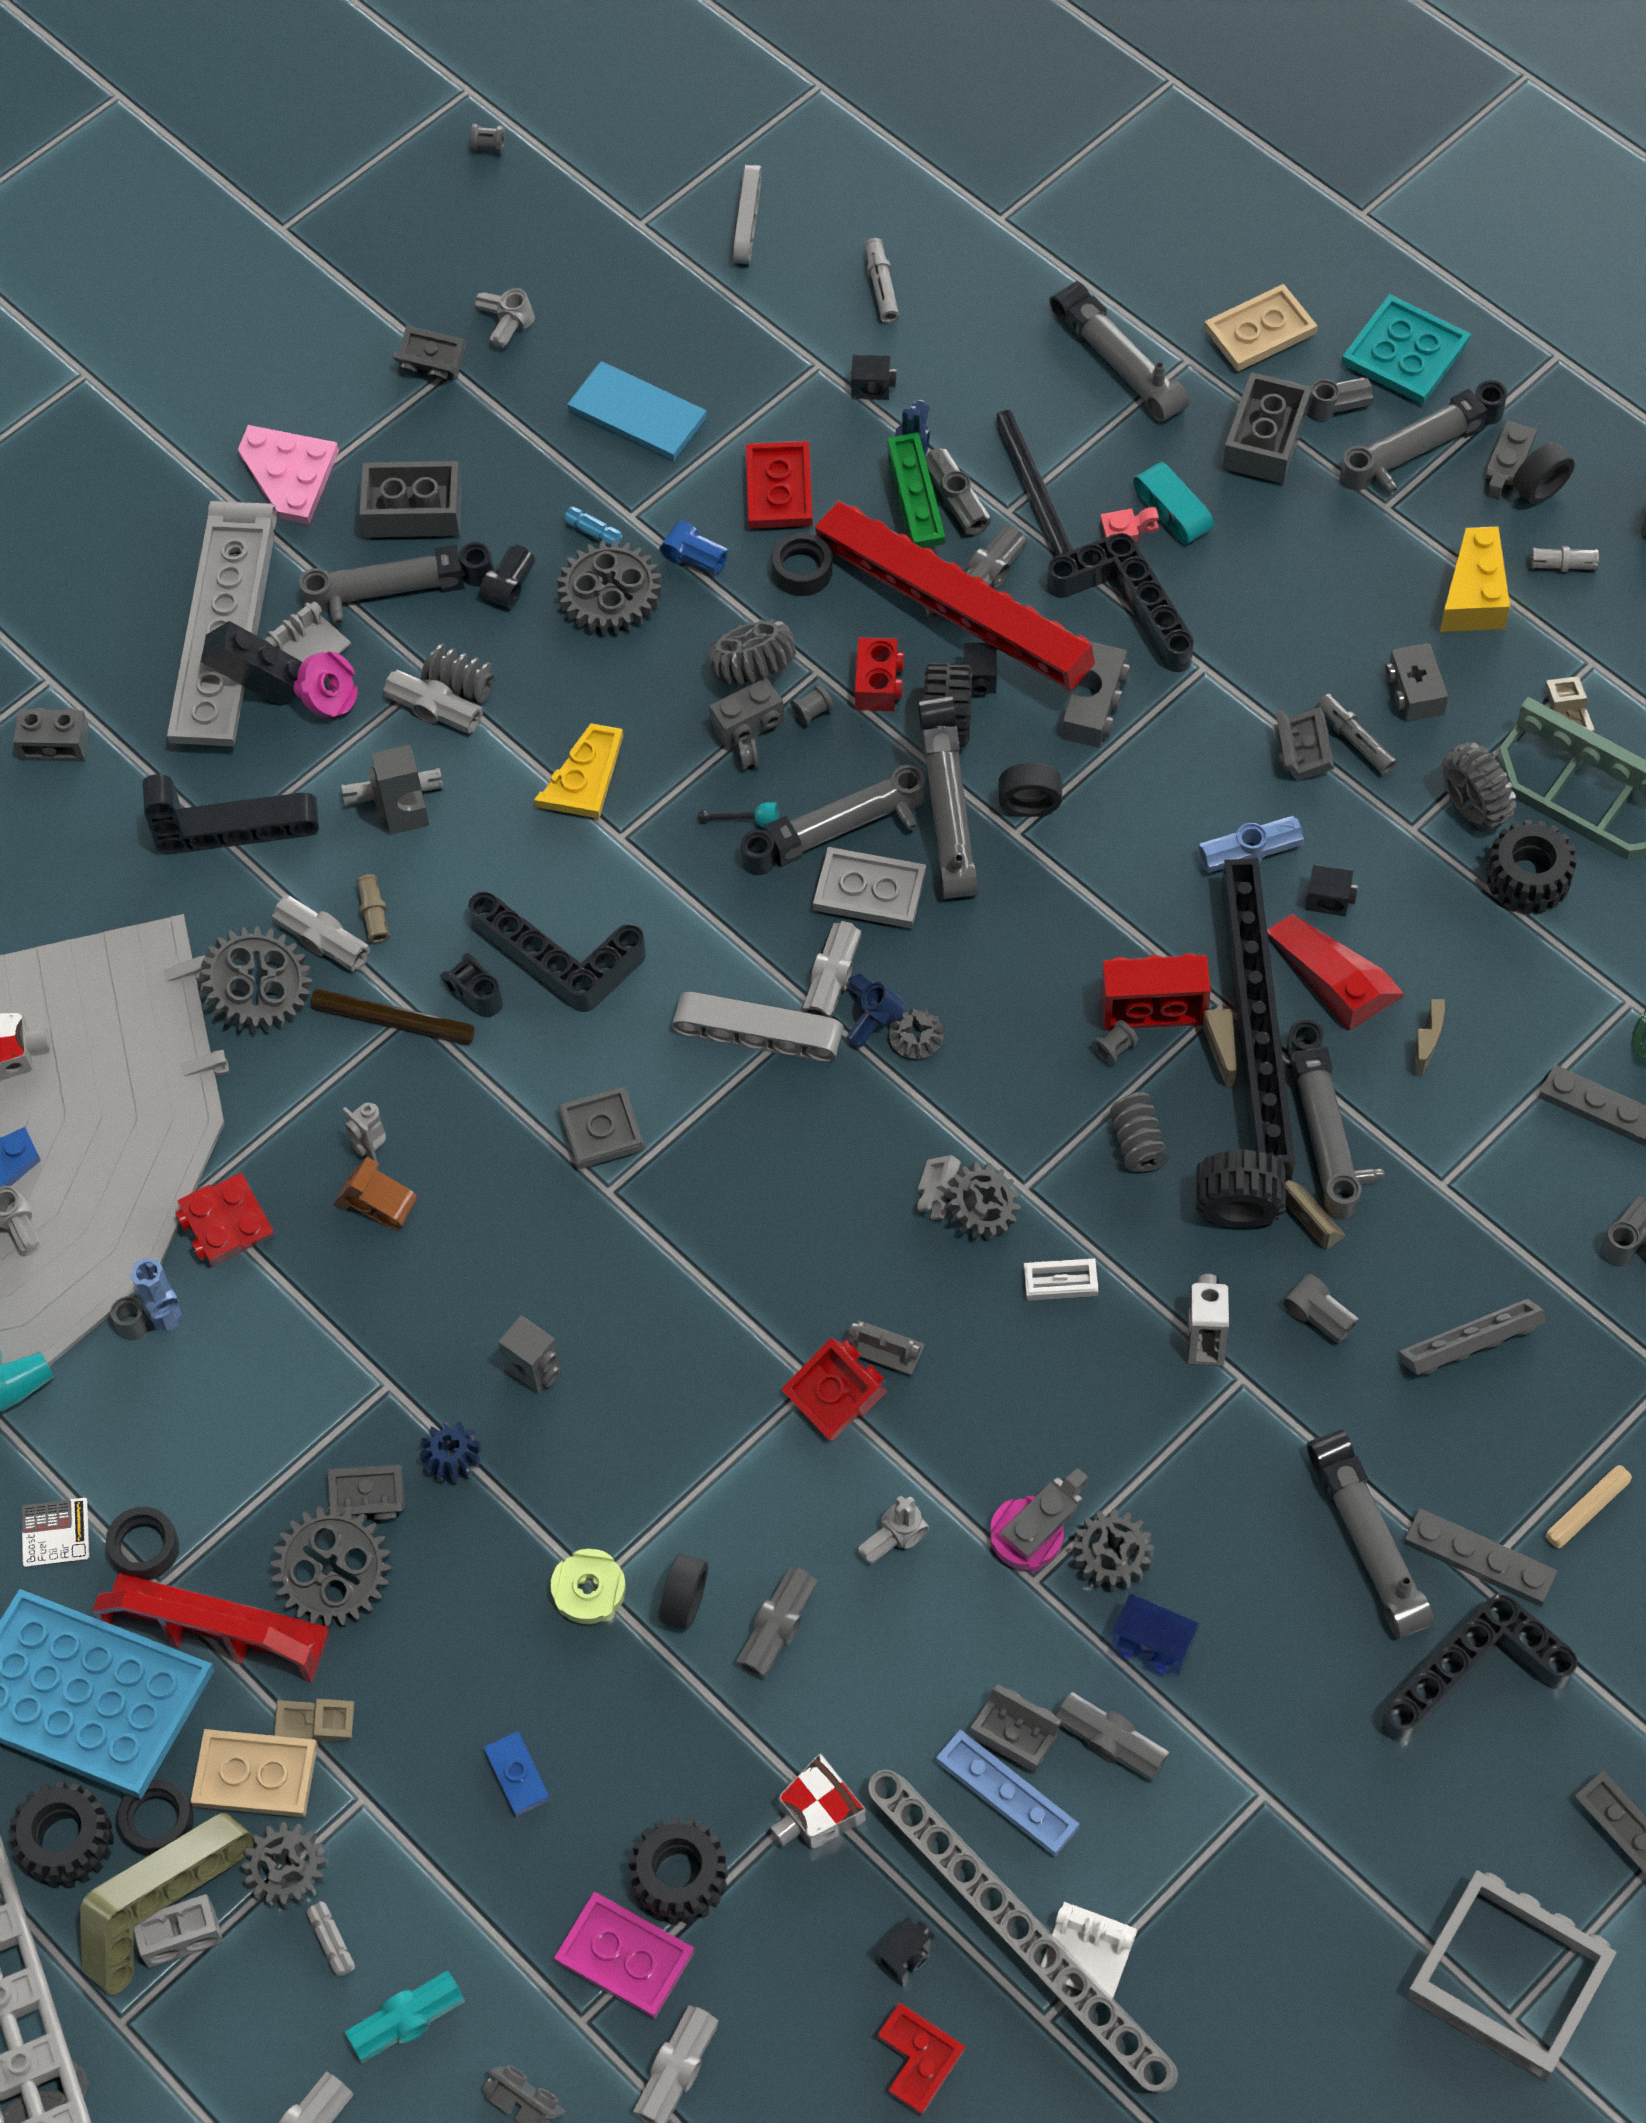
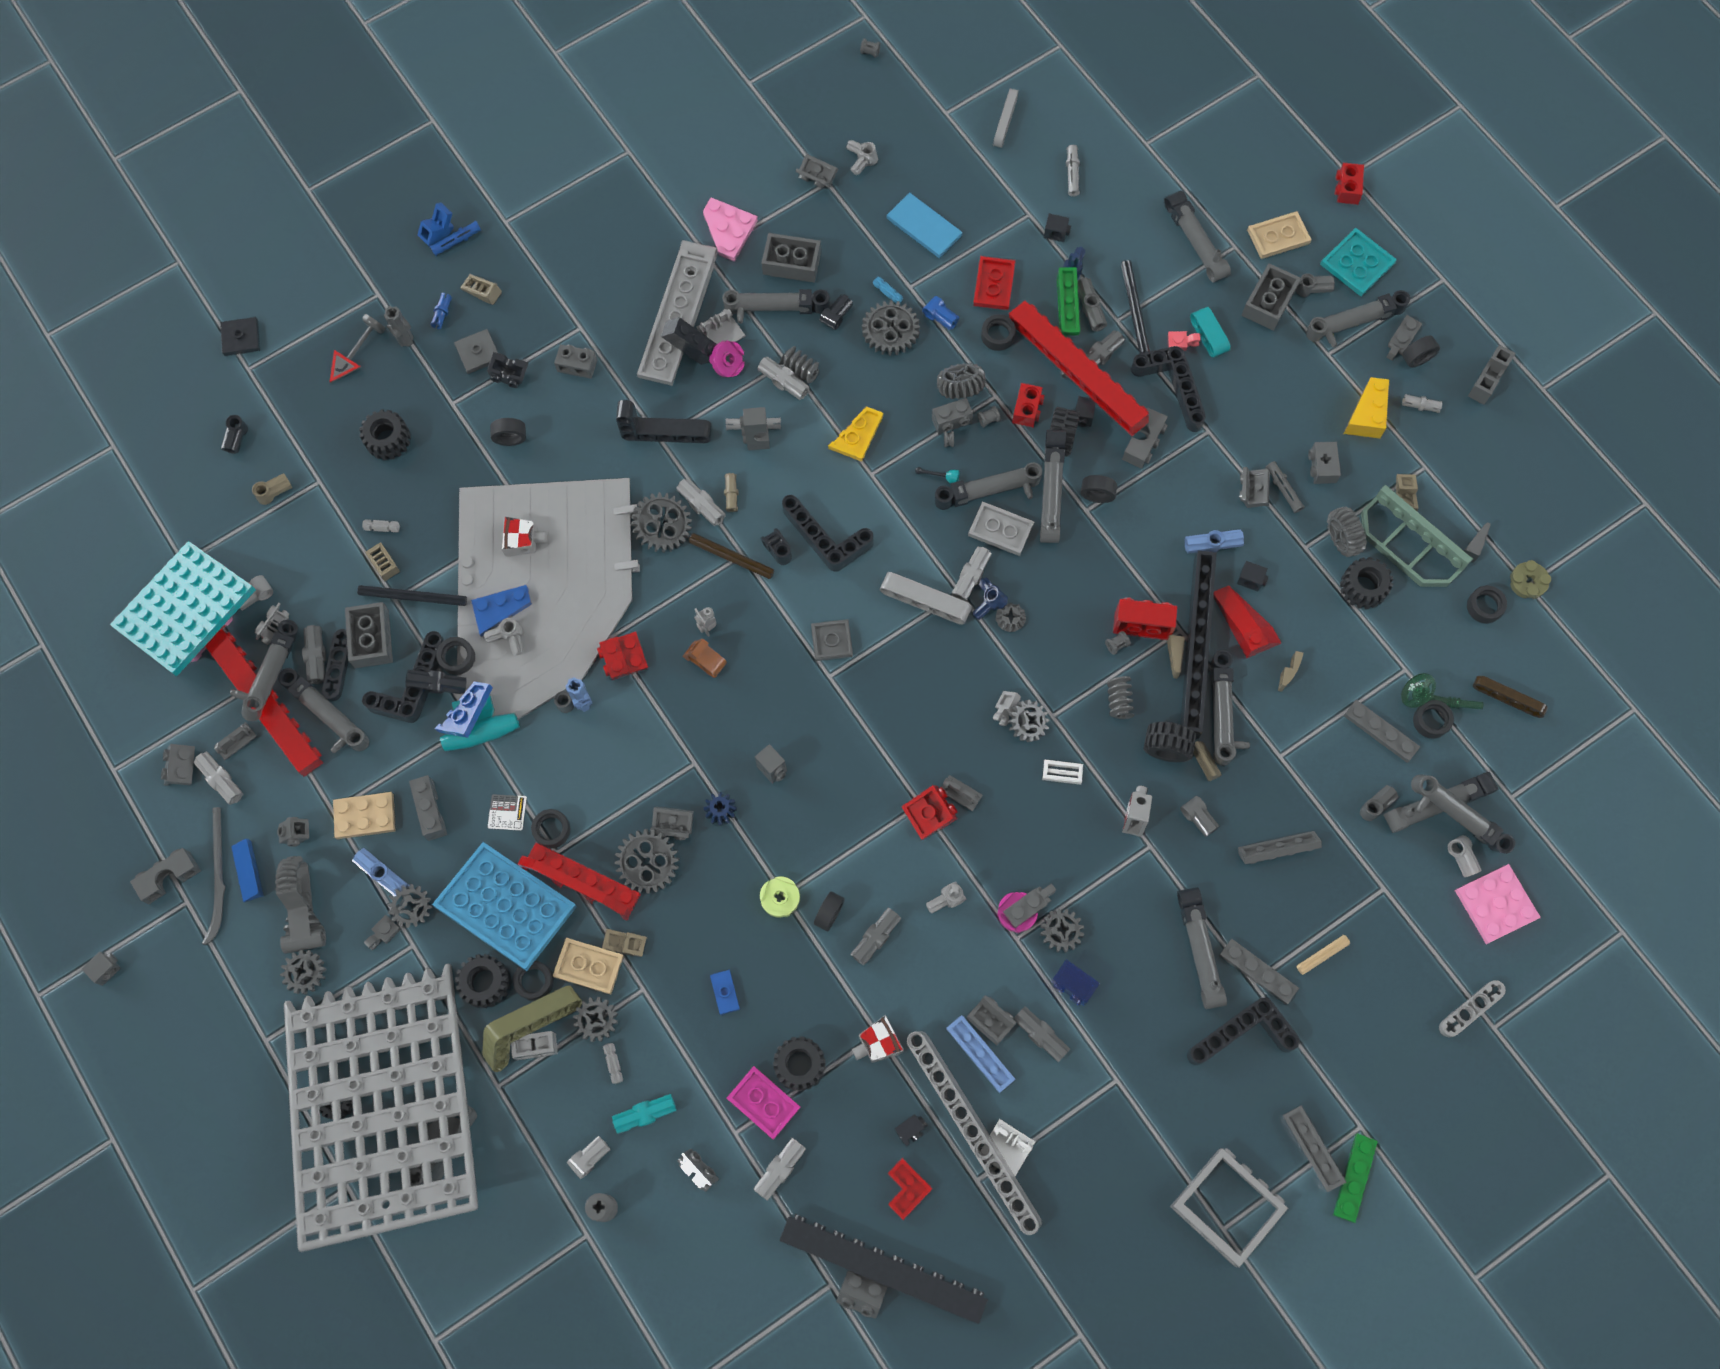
camera: 10 degrees right, 10 degrees up
(1365, 225) = (1350, 183): none -> red brick

